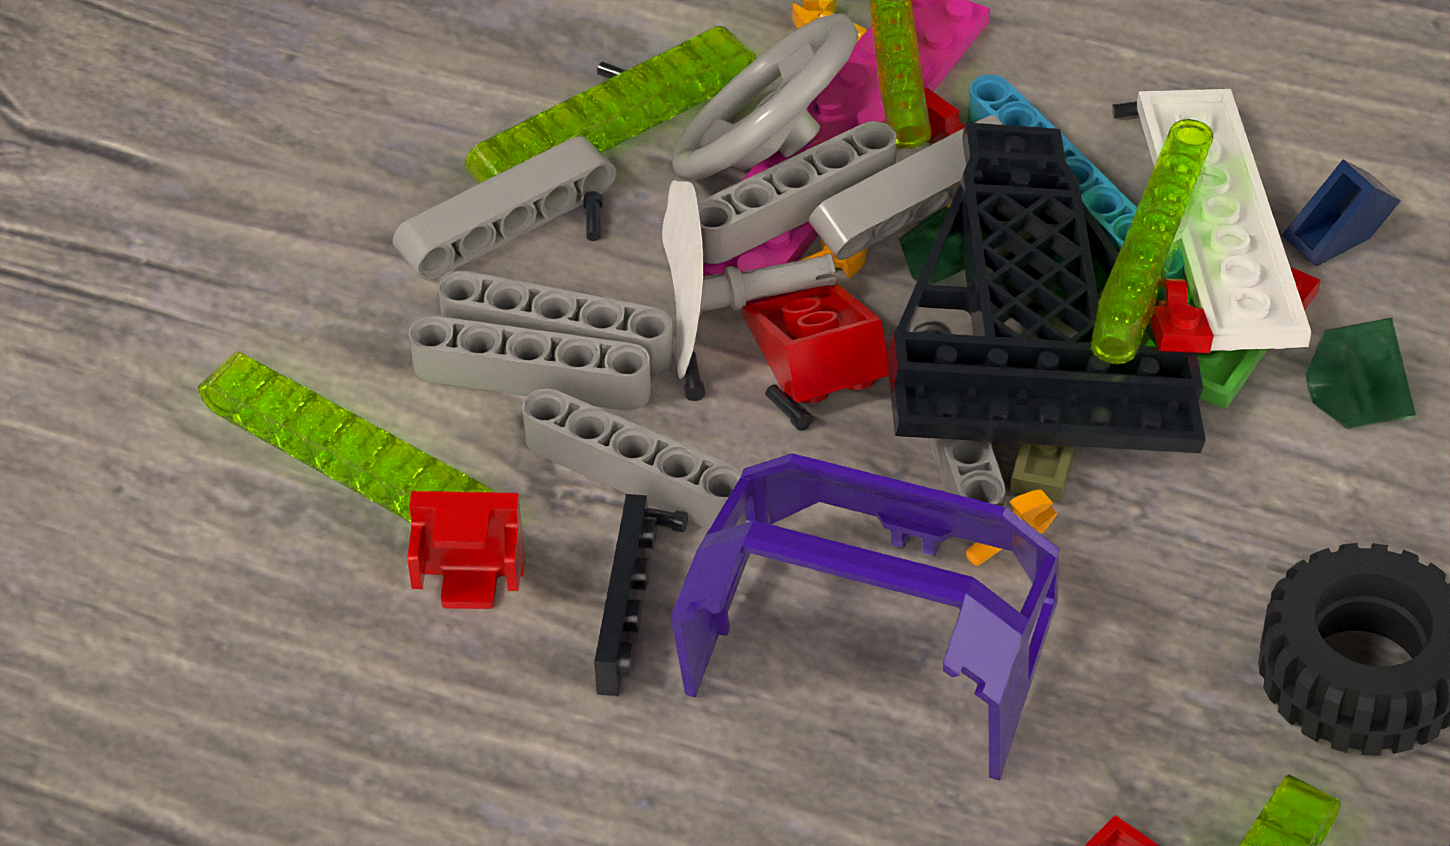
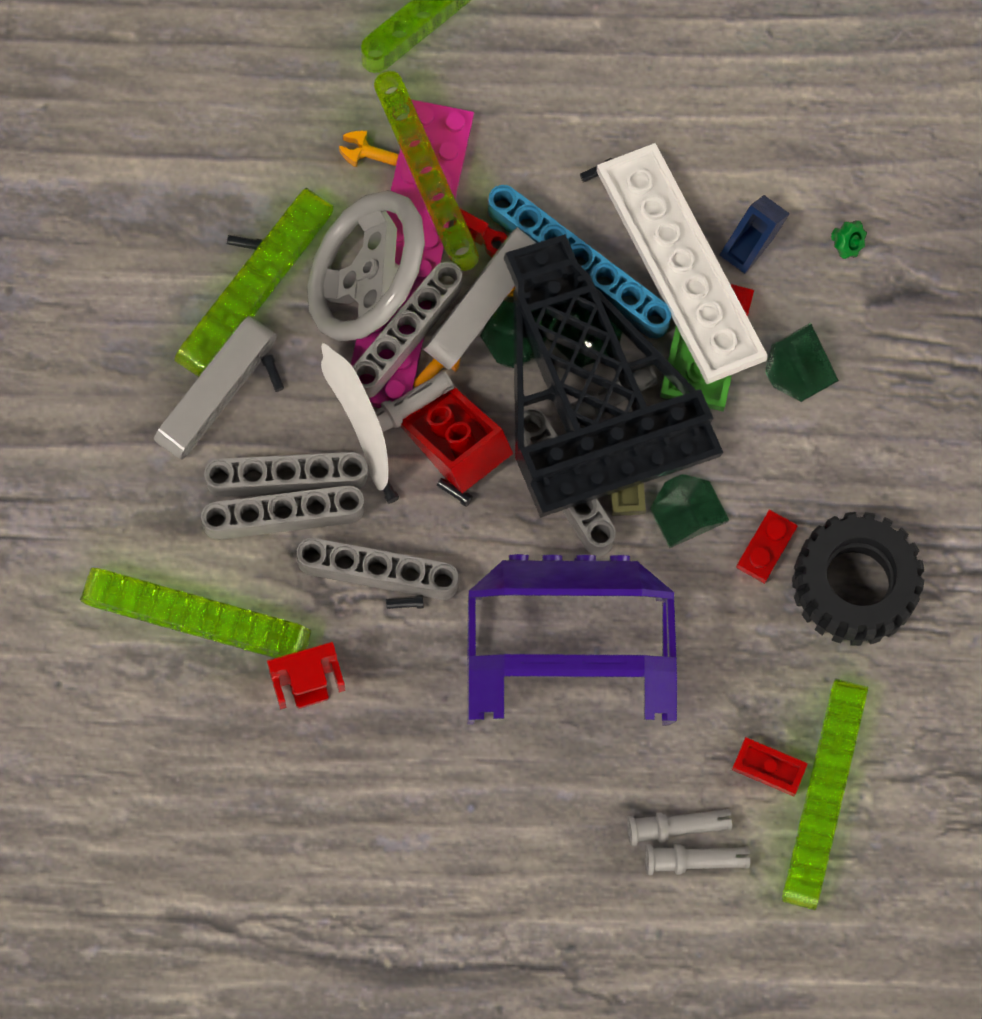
camera: 25 degrees left, 25 degrees up
(622, 610) = (413, 685): black plate -> none
(1033, 507) = (630, 539): light orange bar -> none
(1128, 511) = (687, 509): none -> clear green slope
(1151, 242) = (650, 327): clear neon green beam -> none
(1179, 325) = (685, 375): red plate -> none
(1234, 588) = (766, 546): none -> red plate

